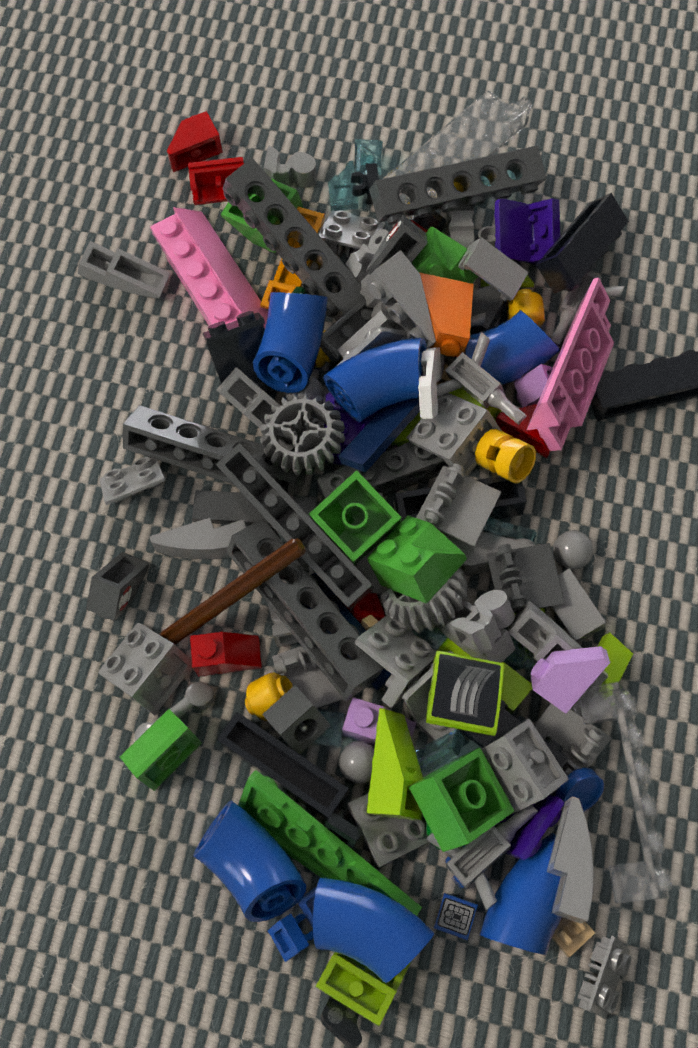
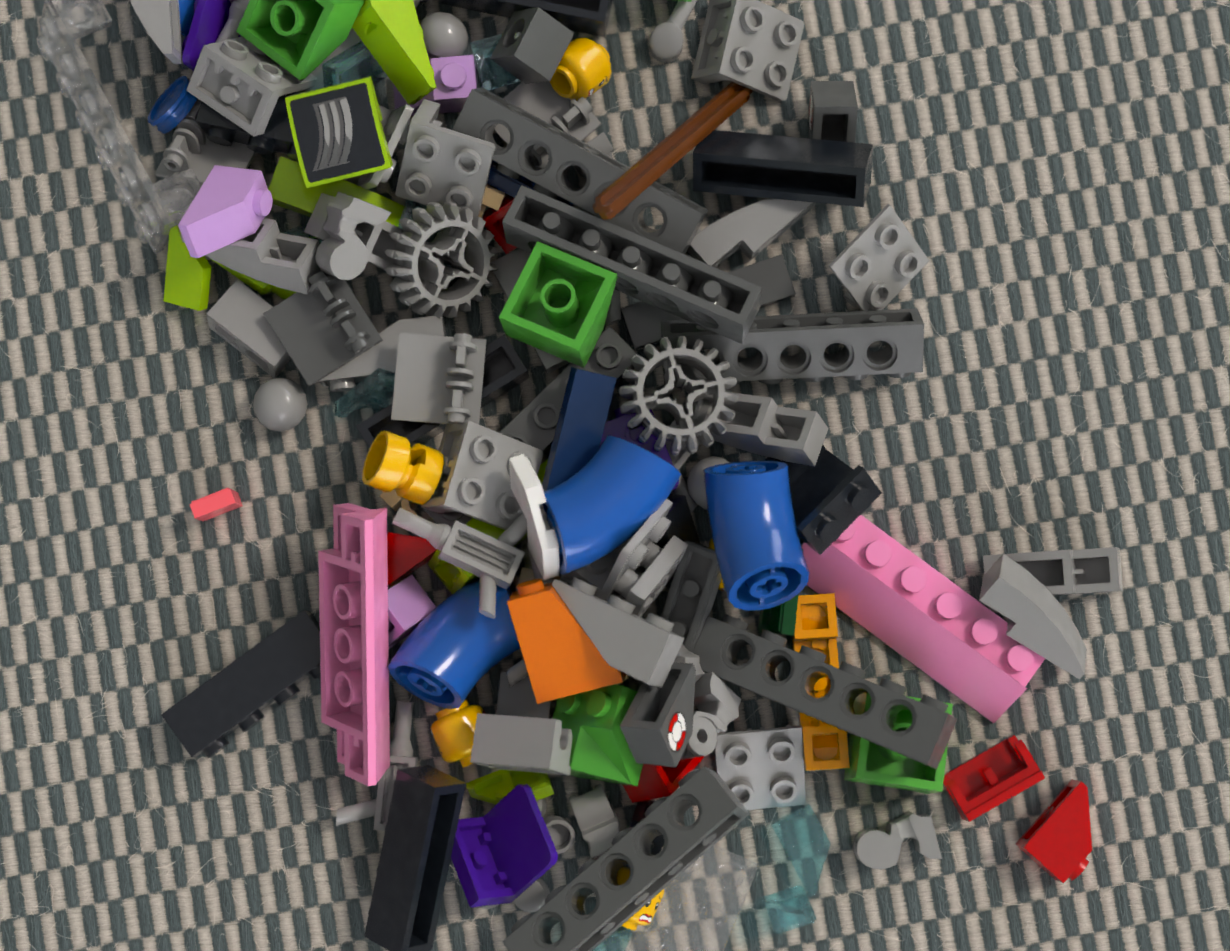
camera: 150 degrees right, 15 degrees up
(149, 246) = (1033, 615): none -> light grey slope
(160, 560) = (783, 168): none -> black brick
(224, 653) = (658, 100): red slope -> none
(365, 180) = (766, 860): black tile -> none
(415, 559) = (461, 284): bright green slope -> none
(639, 501) = (215, 504): none -> coral tile

